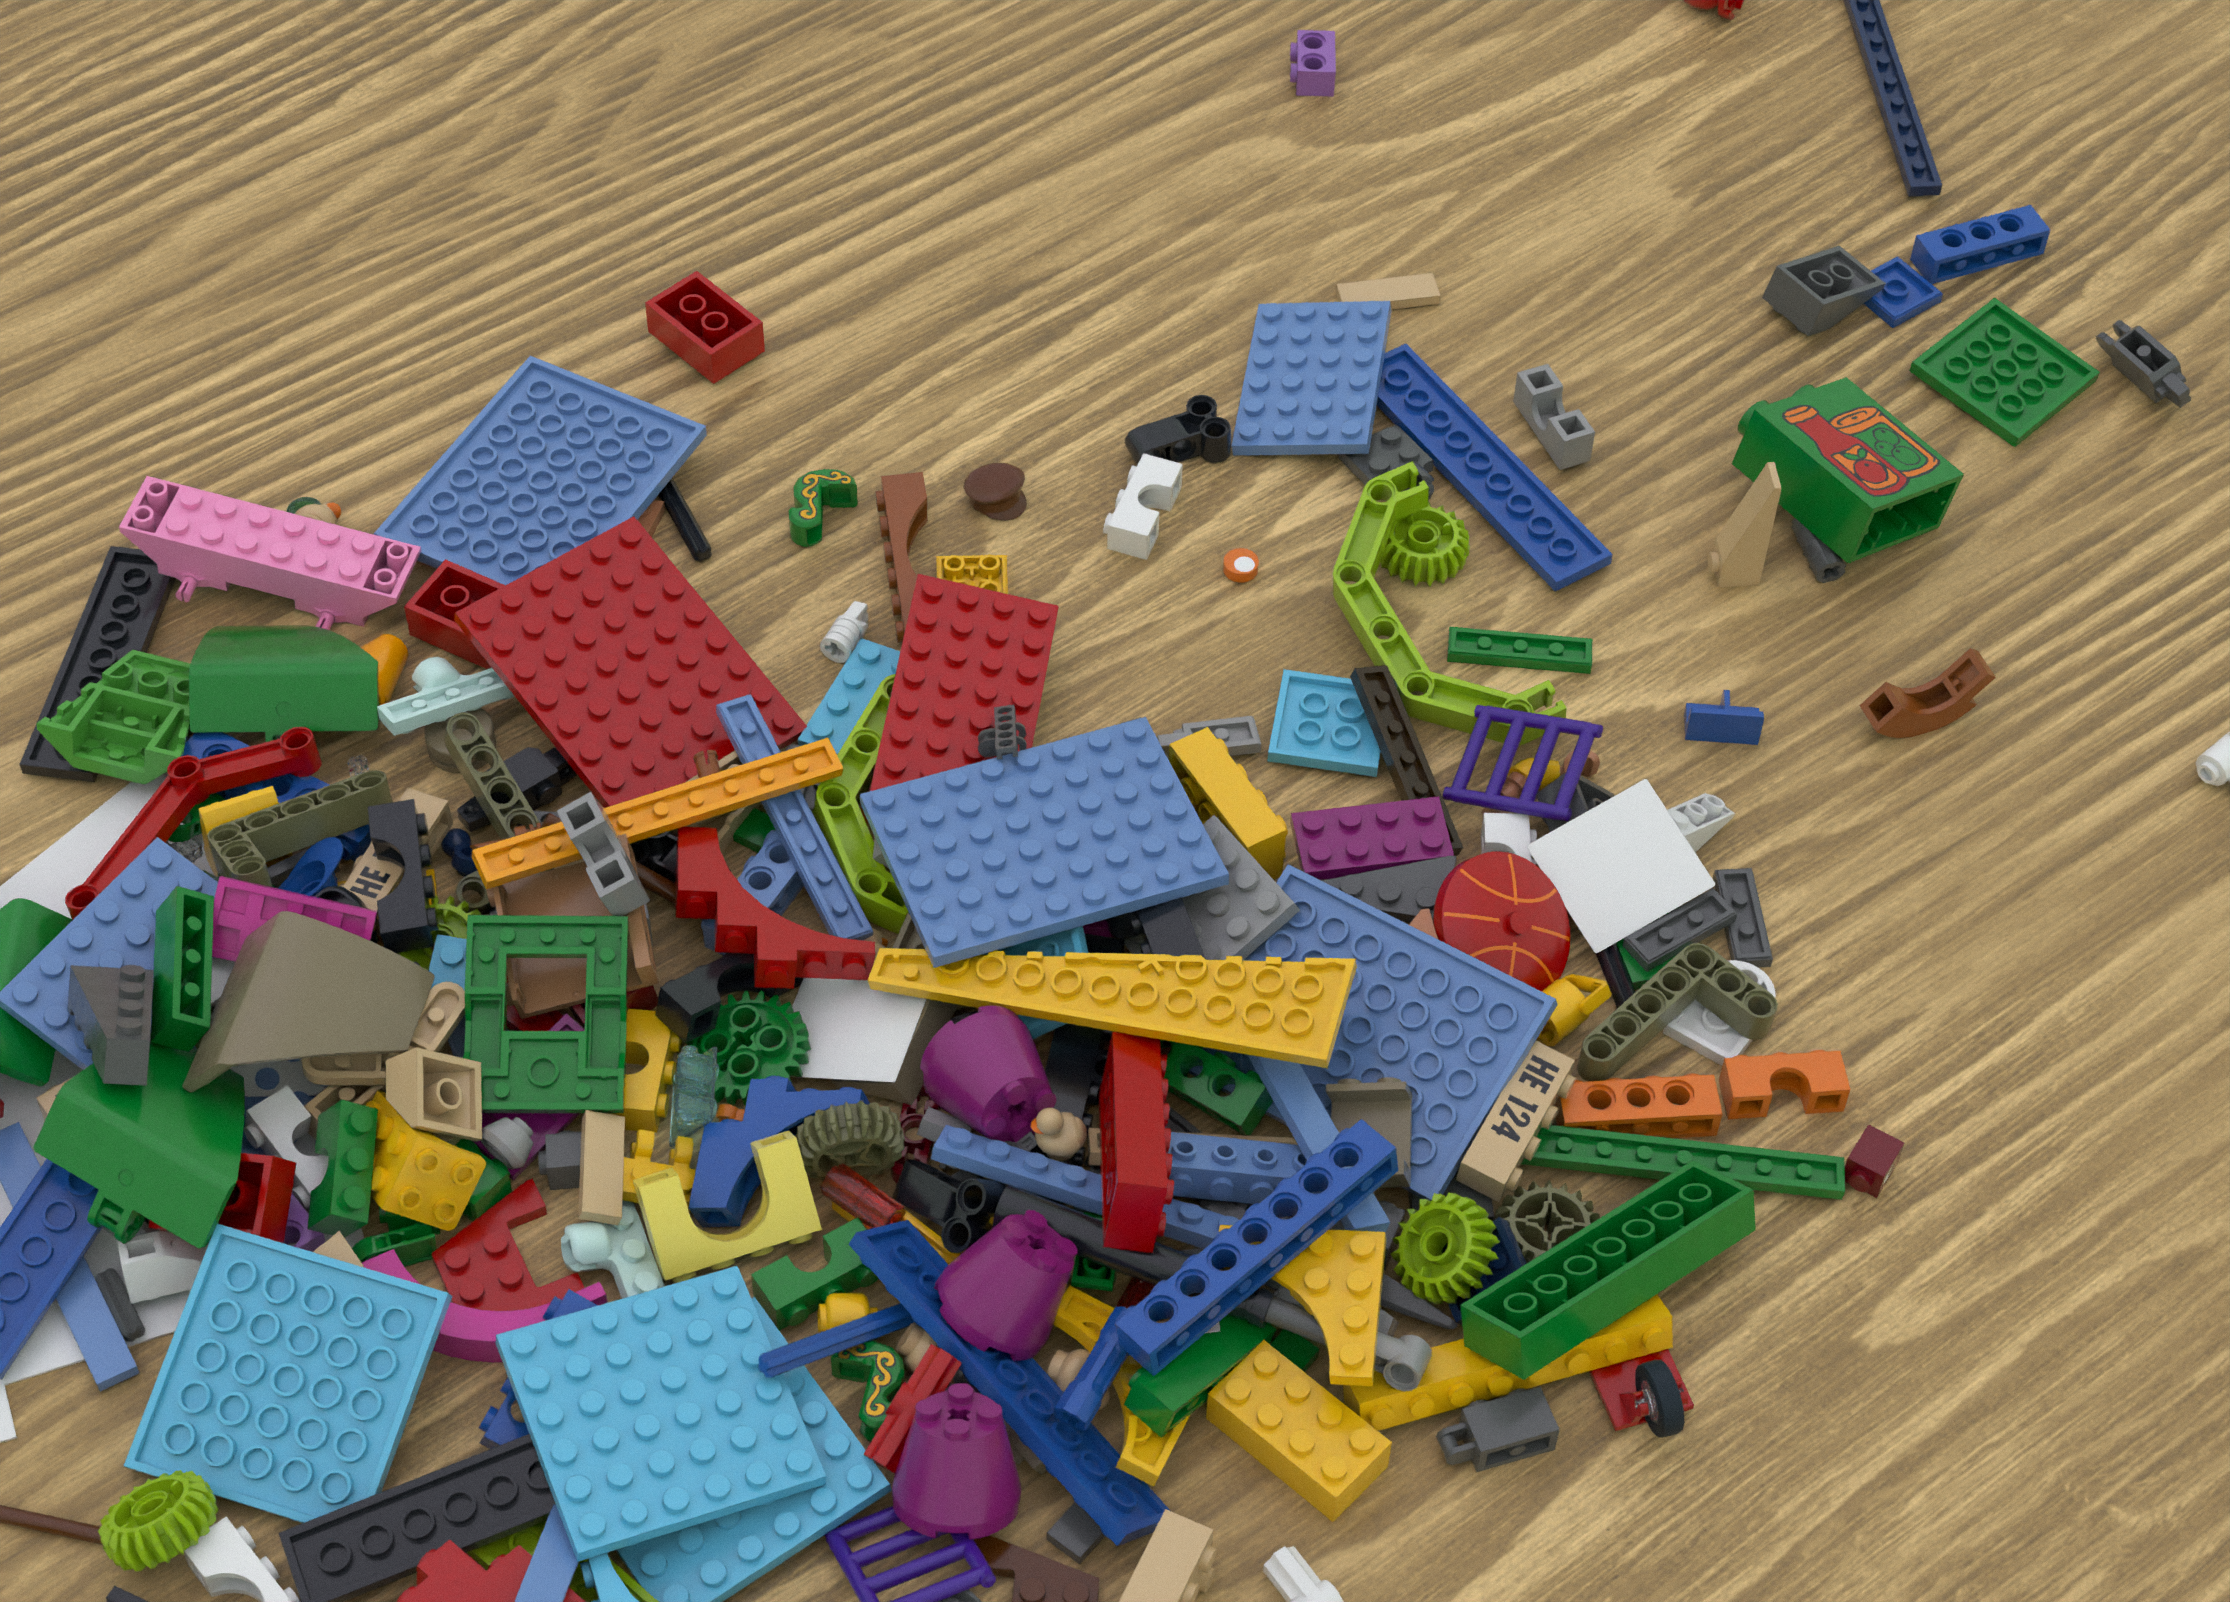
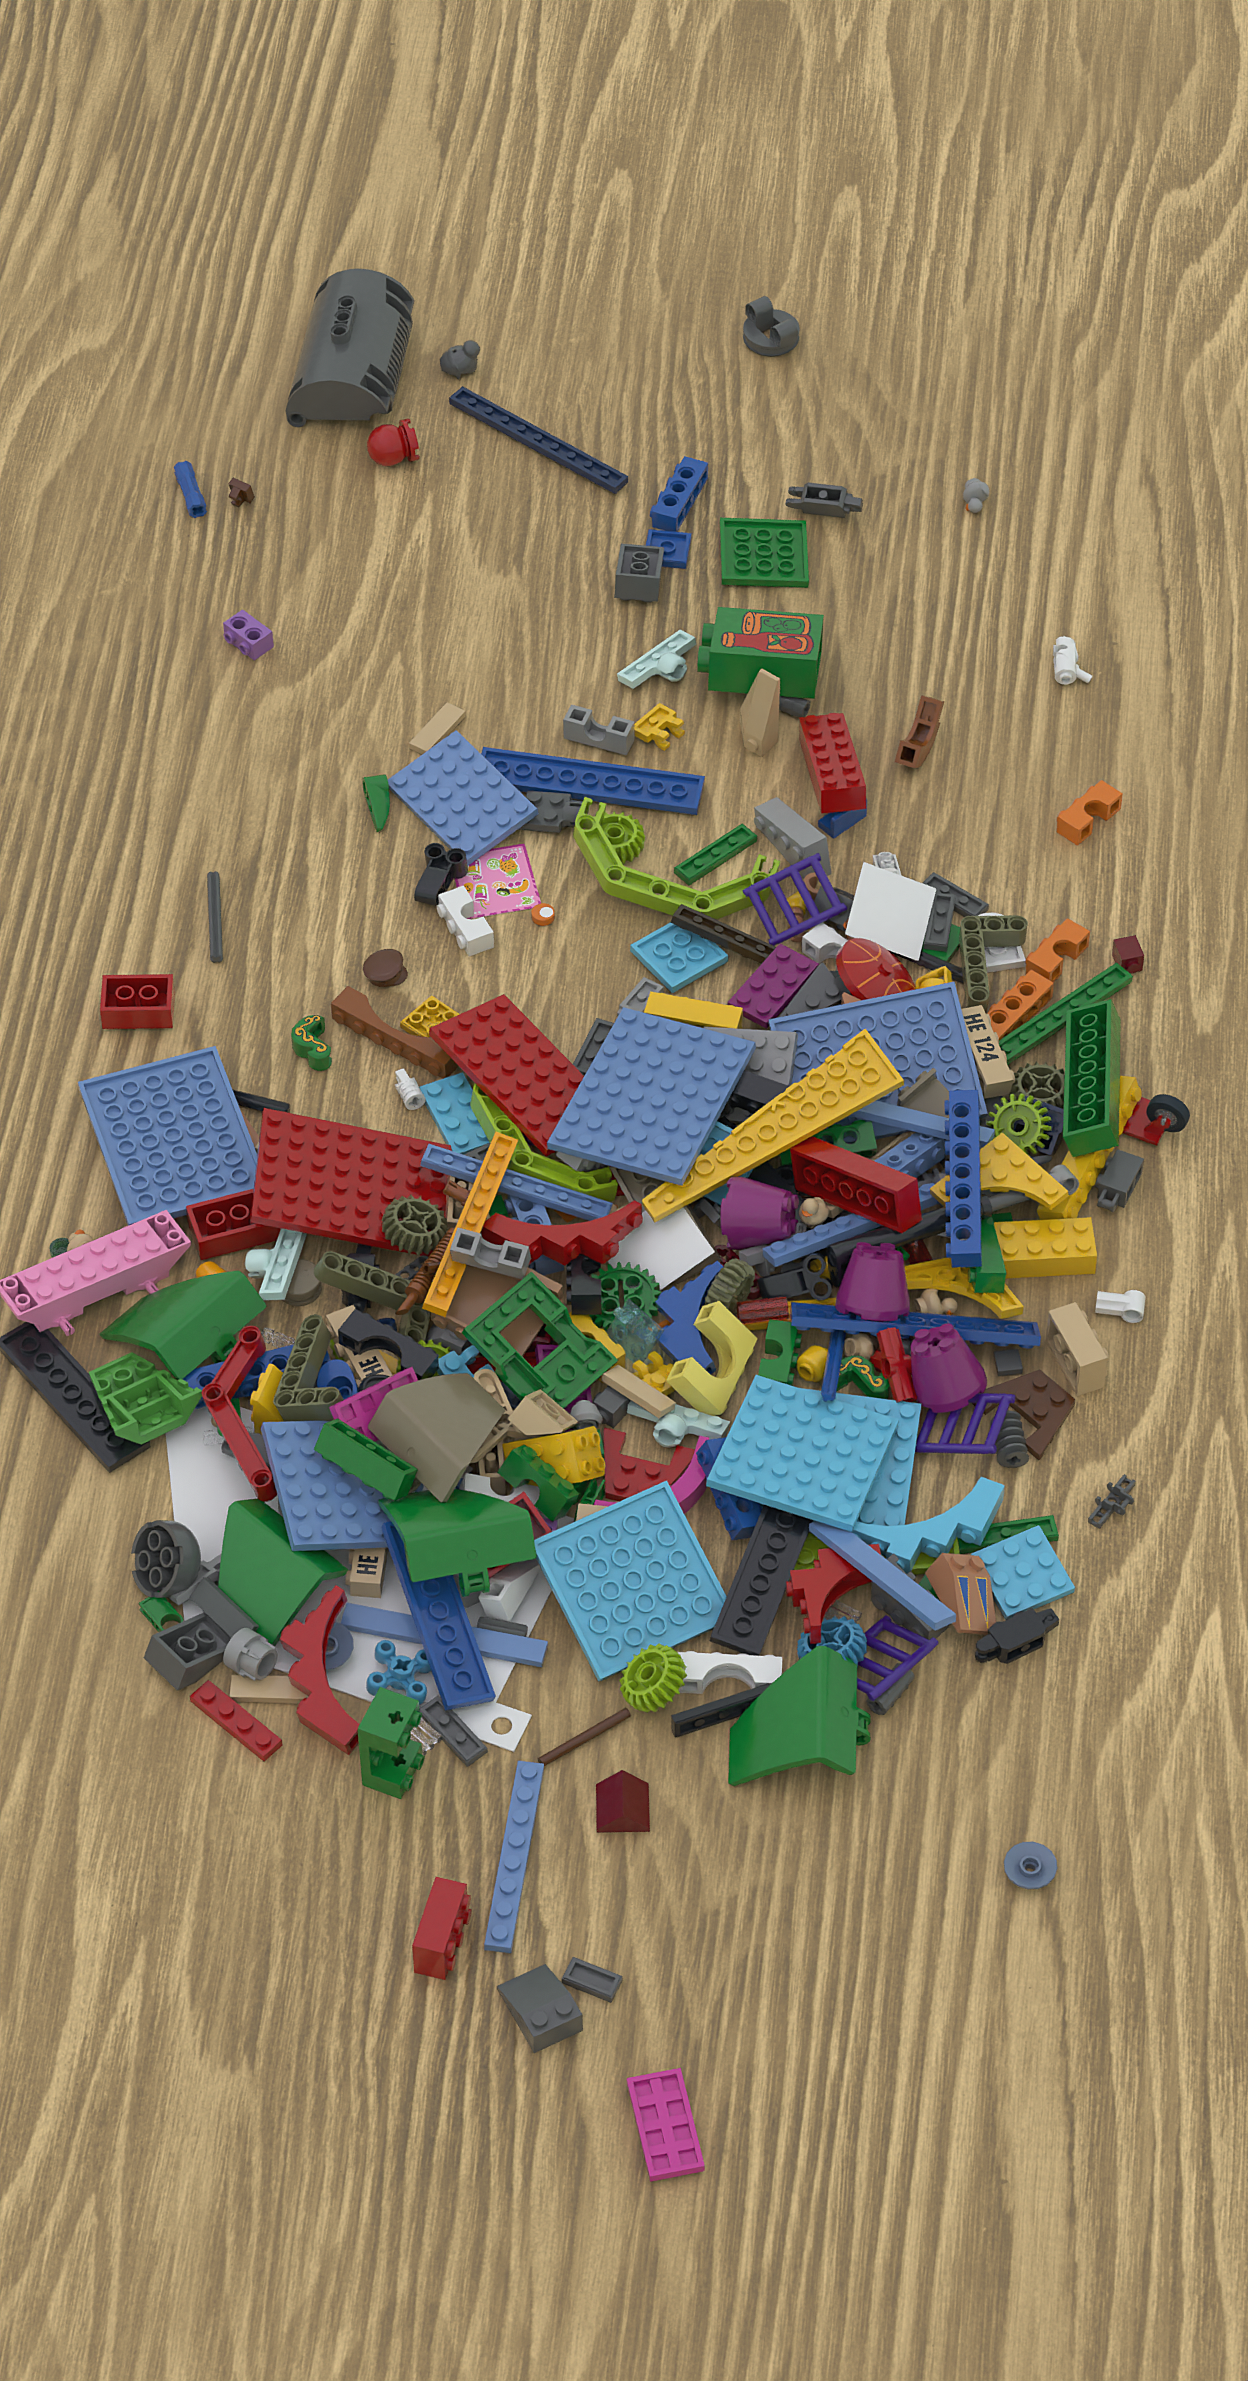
camera: 45 degrees left, 0 degrees up
(115, 1018) = (379, 1498): dark grey wedge -> none
(606, 752) = (416, 1219): none -> olive gear
(904, 308) = (214, 913): none -> dark grey axle
(1003, 737) = (565, 1066): dark grey piece -> none
(1086, 1391) = (957, 1299): blue axle -> none
(1225, 314) = (377, 798): none -> green piece
(1244, 497) = (501, 882): none -> sticker
(1622, 698) = (791, 834): none -> light grey wedge
(1633, 457) = (653, 724): none -> yellow plate
(1721, 397) = (662, 660): none -> light aqua plate
(1769, 647) = (832, 763): none -> red brick
(2070, 946) = (1099, 801): none -> orange arch

